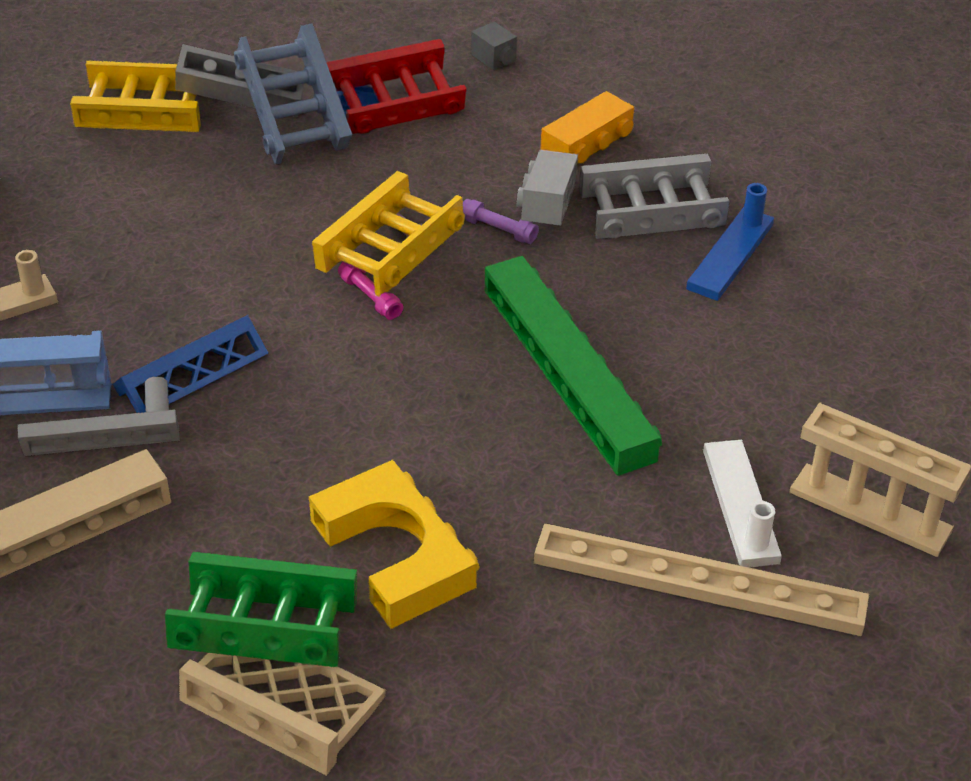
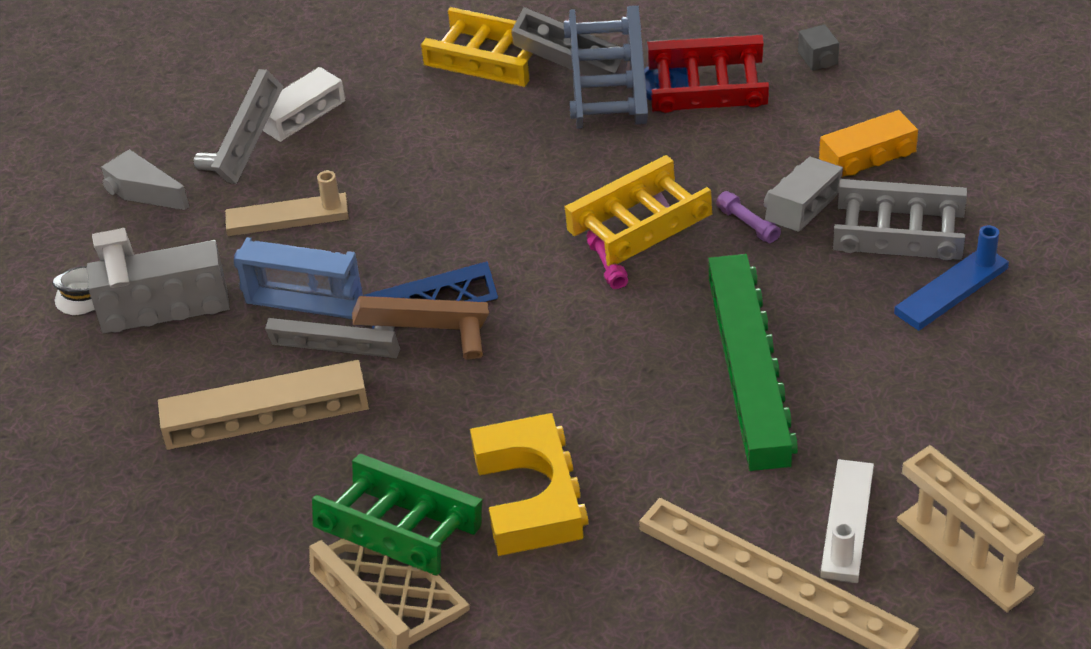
camera: 25 degrees right, 0 degrees up
(204, 384) = (426, 314): none -> medium nougat piece

